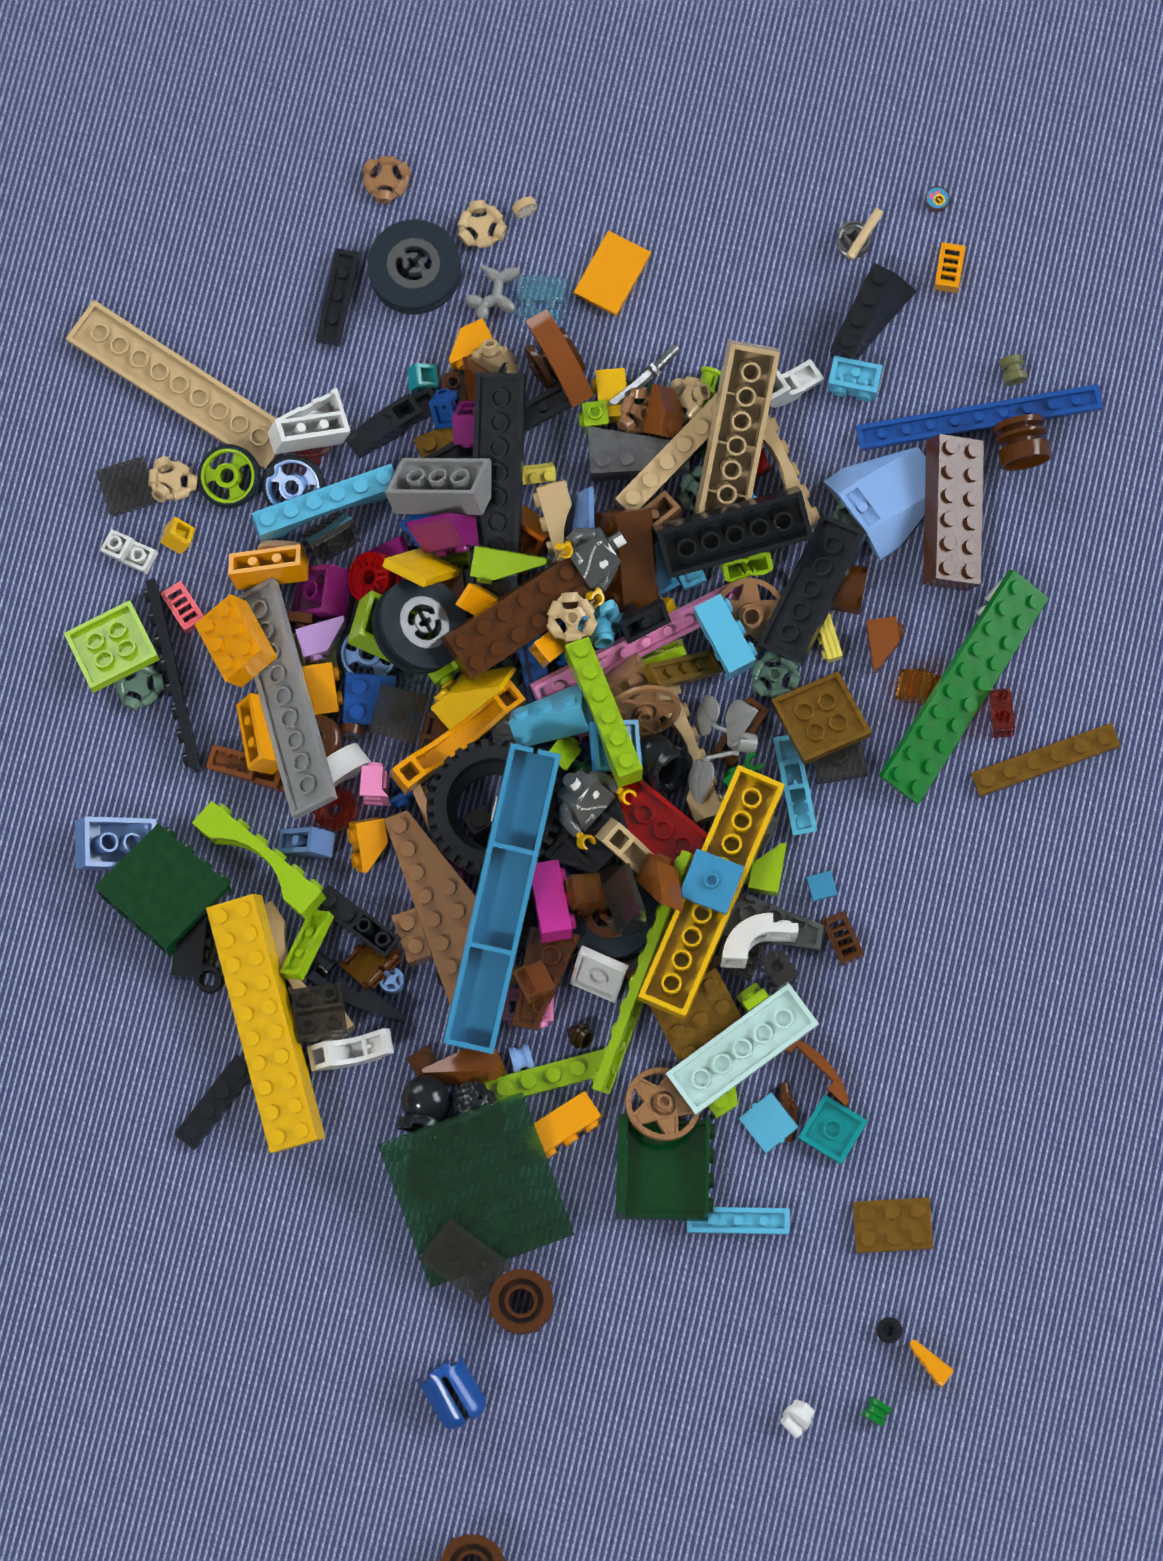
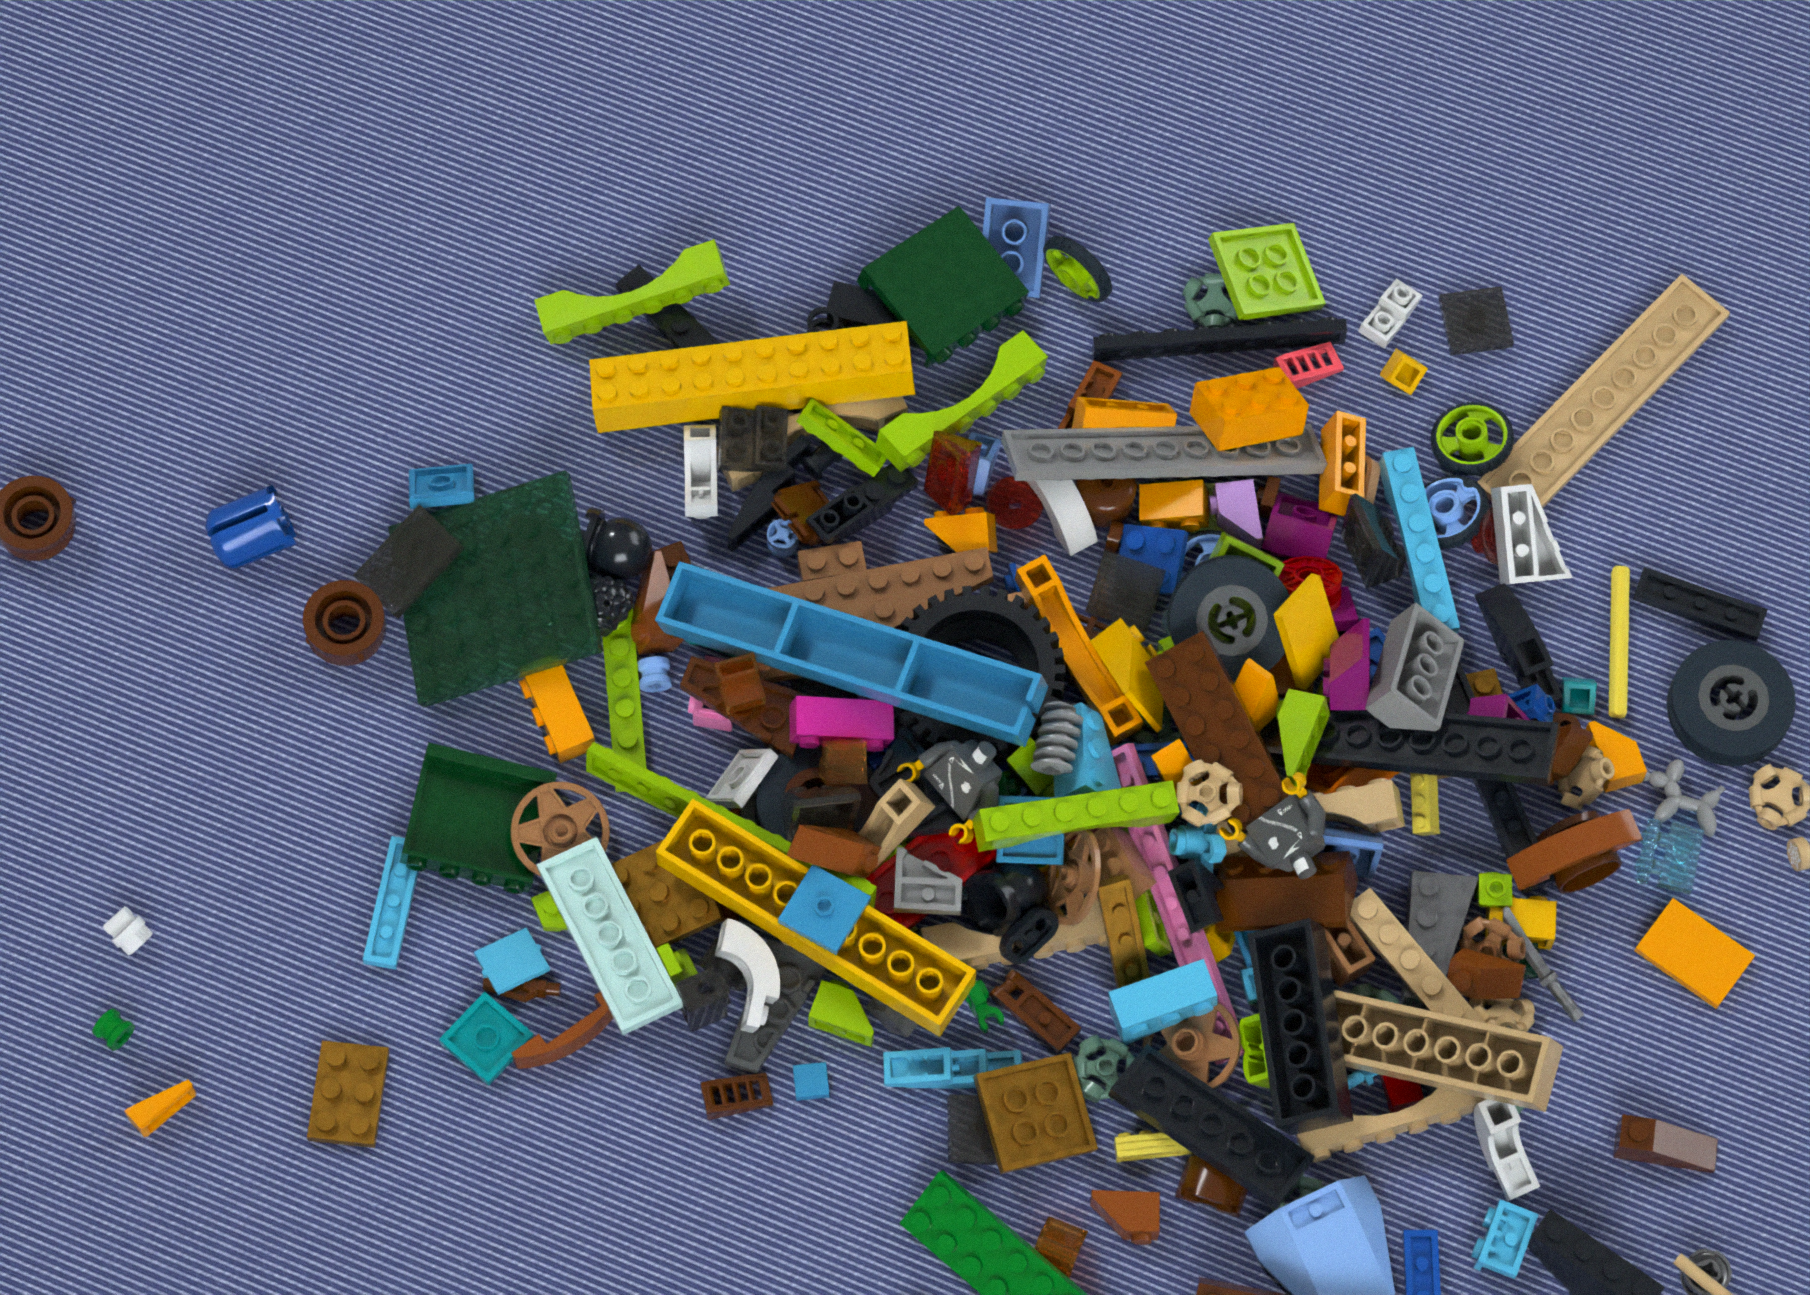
camera: 90 degrees right, 10 degrees down
(134, 788) = (1079, 271): none -> wheel
(167, 482) = (1477, 372): tan piece -> none
(228, 1179) = (695, 272): none -> lime arch
(325, 856) = (952, 471): none -> clear red slope
(375, 785) = (1034, 540): bright pink window -> none
(376, 352) = (1619, 642): none -> light yellow axle
(393, 1250) = (441, 486): none -> dark azure plate
(546, 733) = (1056, 739): none -> light grey piece
(580, 1036) = (668, 749): dark brown plate -> none
(671, 818) = (925, 888): none -> light grey wing
(691, 739) = (1028, 936): none -> black plate
(737, 720) = (1038, 981): light grey plant -> none
(762, 278) = (1664, 1144): none -> slope
(889, 1322) = (209, 1057): black plate -> none

